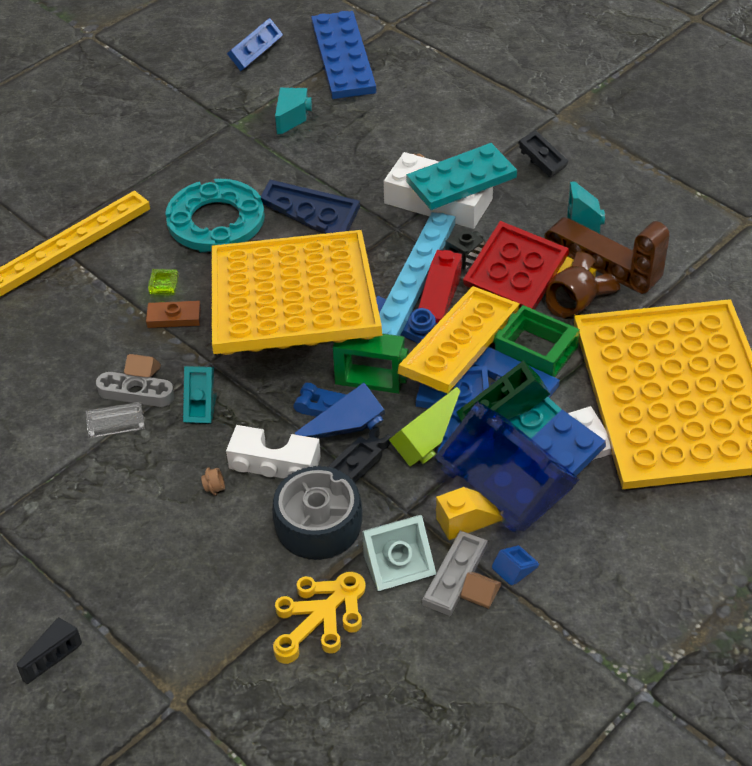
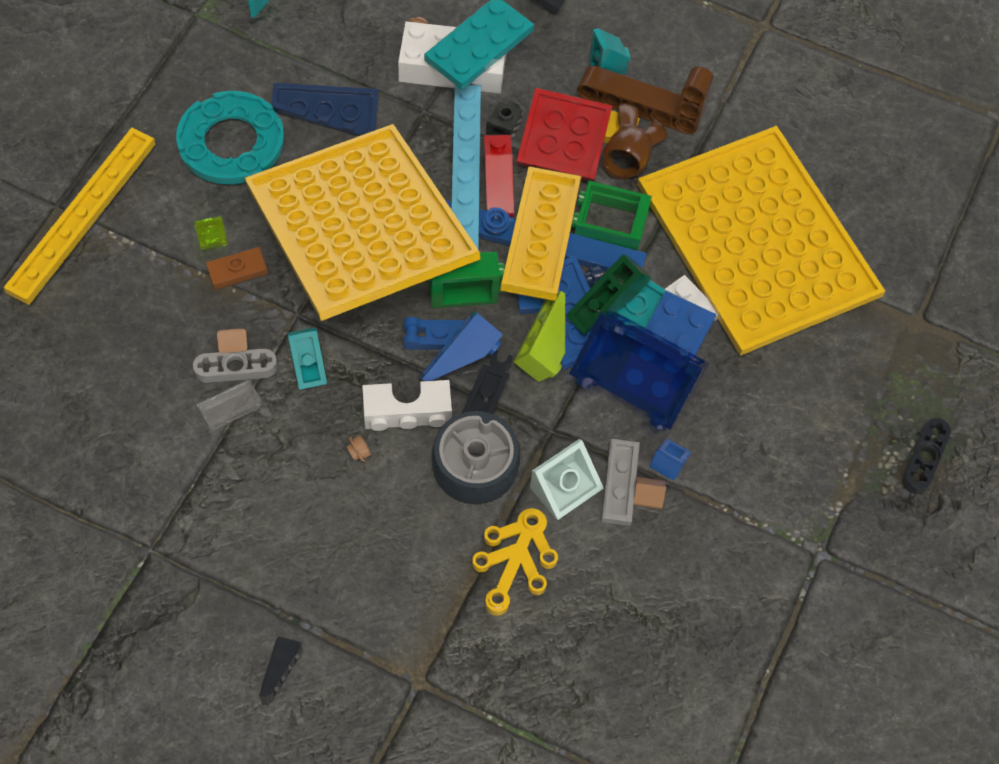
camera: 25 degrees left, 15 degrees up
(465, 511) = (609, 420): yellow slope -> none

